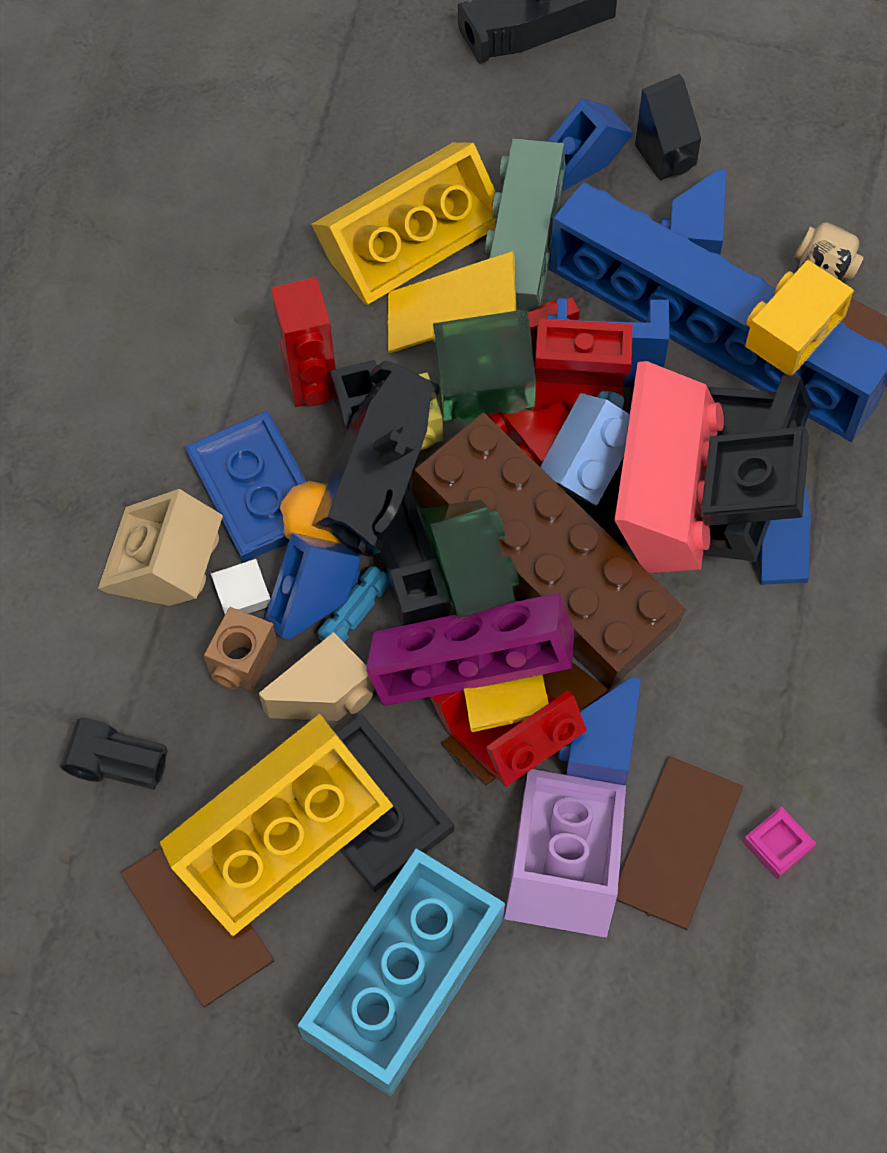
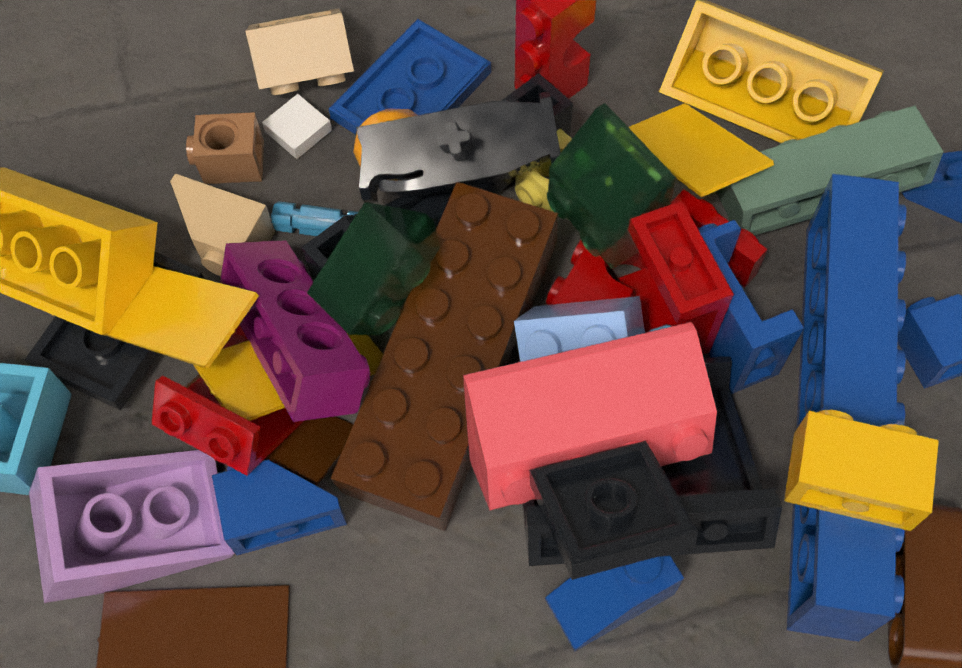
camera: 65 degrees right, 0 degrees up
(101, 752) = (84, 96): black piece -> none
(311, 583) = (317, 169): blue slope -> none
(420, 727) = (183, 316): none -> yellow piece

